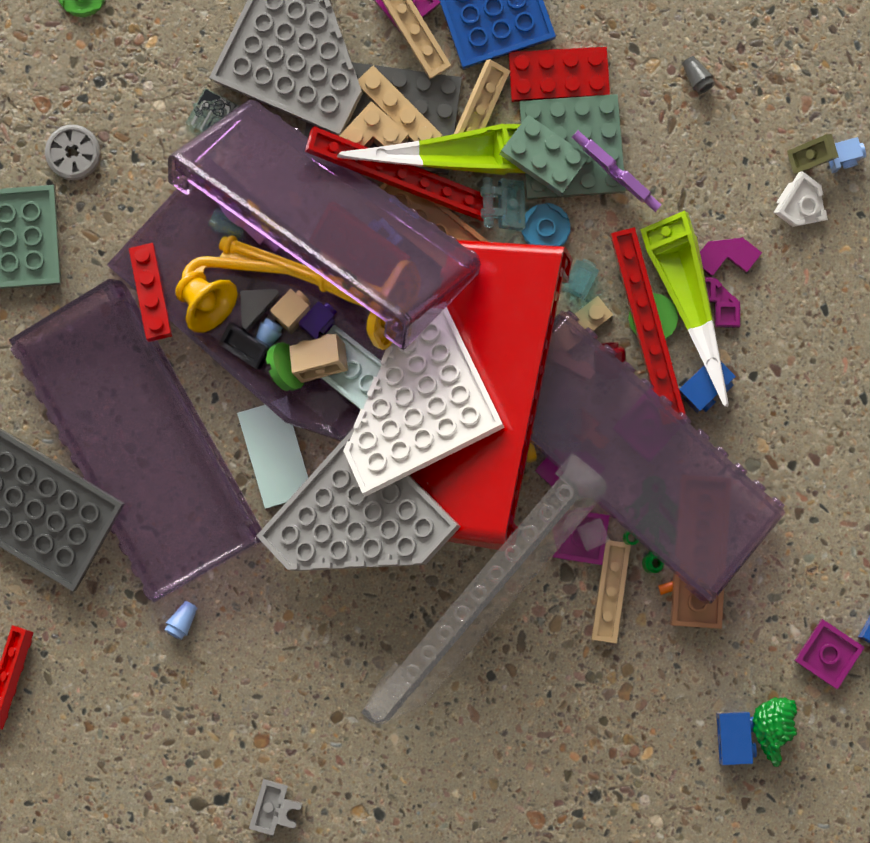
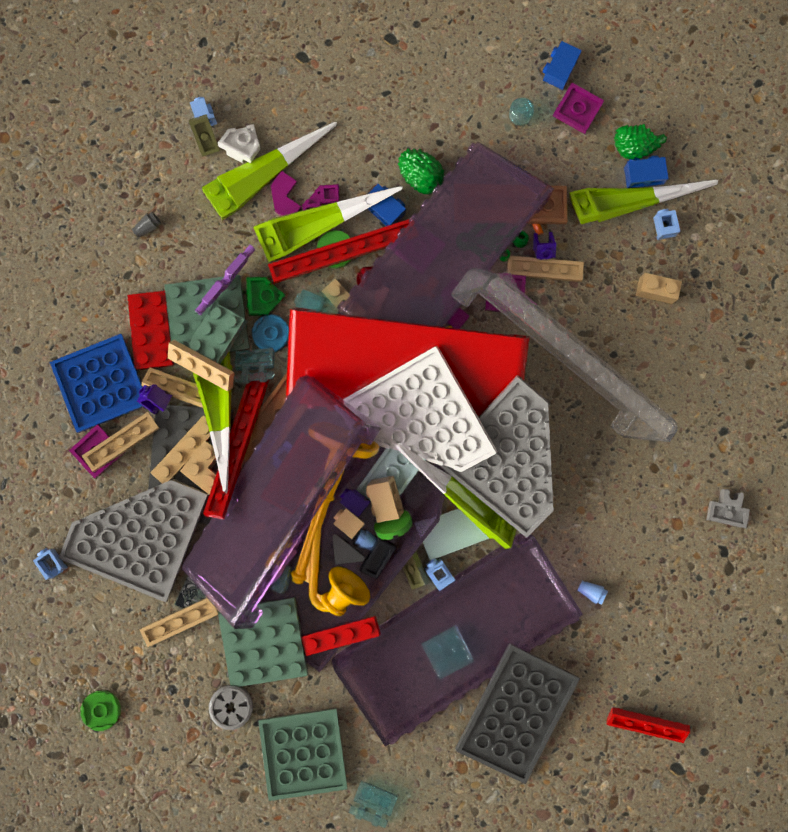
camera: 90 degrees left, 0 degrees up
(119, 426) = (447, 652): none -> clear light blue plate
(141, 203) = (267, 650): none -> sand green plate
(183, 91) = (178, 621): none -> tan plate
(219, 423) = (439, 573): none -> light blue window
(224, 393) = (415, 572): none -> olive plate
(308, 457) = (476, 510): none -> lime plate
(468, 73) = (153, 398): none -> dark purple window
(505, 134) = (200, 365): none -> tan plate
(574, 740) = (658, 288): none -> tan brick
(594, 218) = (261, 296): none -> green plate
(633, 591) = (544, 250): none -> dark purple window
(651, 756) = (670, 219): none -> light blue brick
(695, 684) = (608, 203): none -> lime plate
(744, 196) = (241, 184): none -> lime plate
(751, 435) = (421, 170): none -> green piece
(818, 577) = (521, 111): none -> clear light blue head

